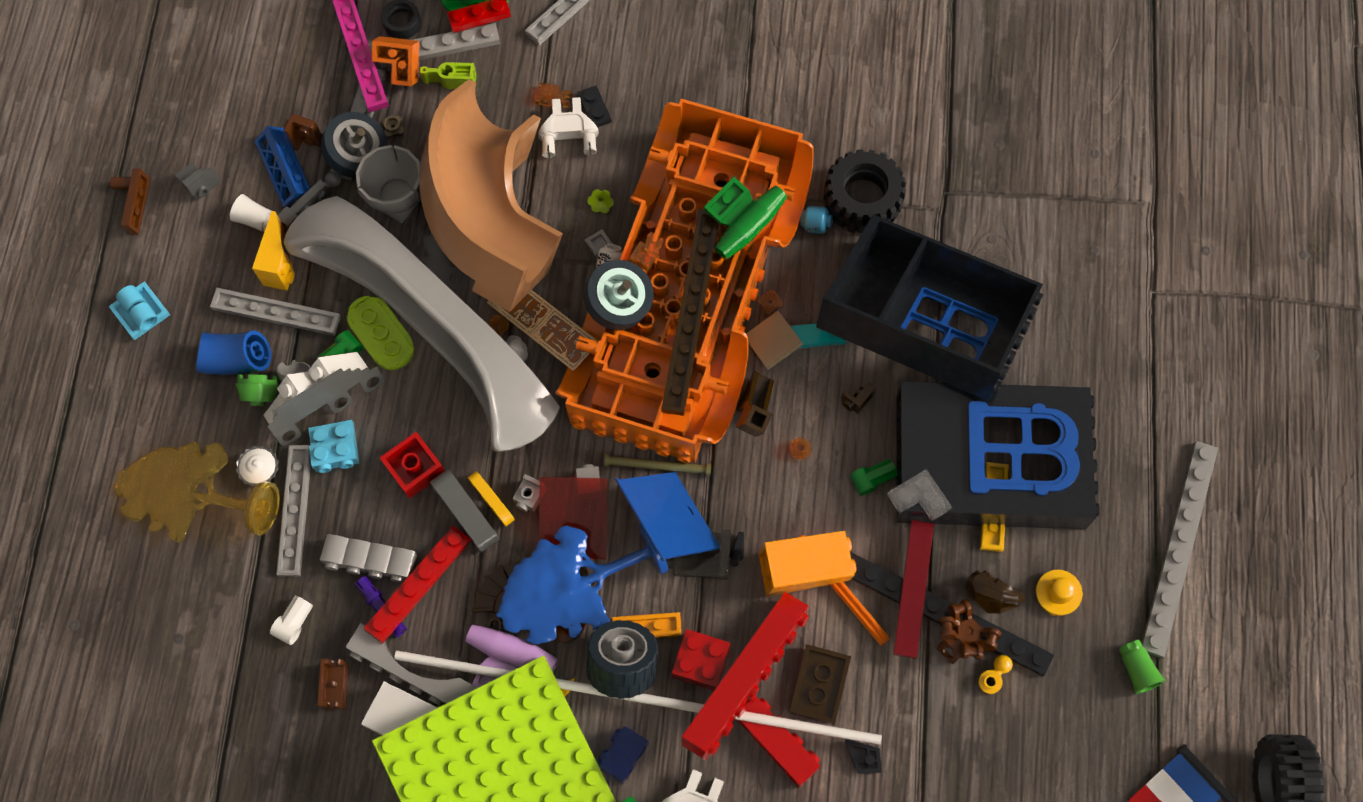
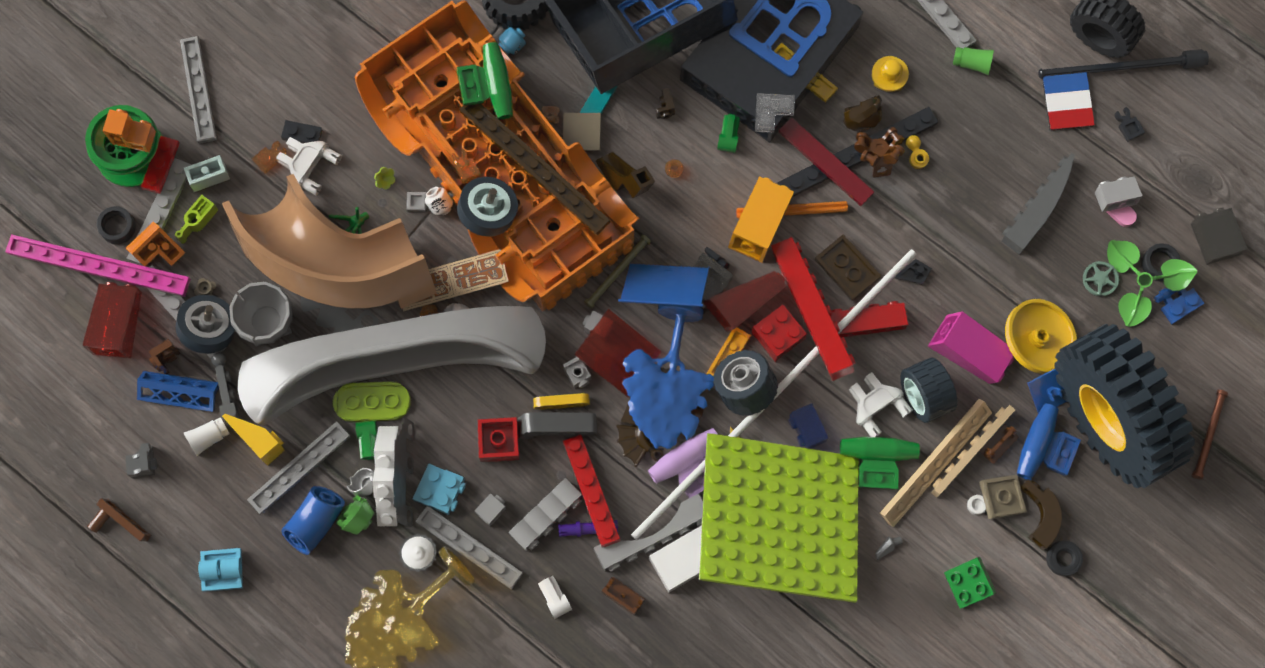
camera: 60 degrees left, 5 degrees up
(310, 72) = (113, 320): none -> clear red slope
(341, 504) = (490, 509): none -> light grey brick
(497, 55) = (206, 173): none -> light aqua brick
(541, 204) = (355, 221): none -> green plant
(707, 601) = (741, 302): none -> clear red slope

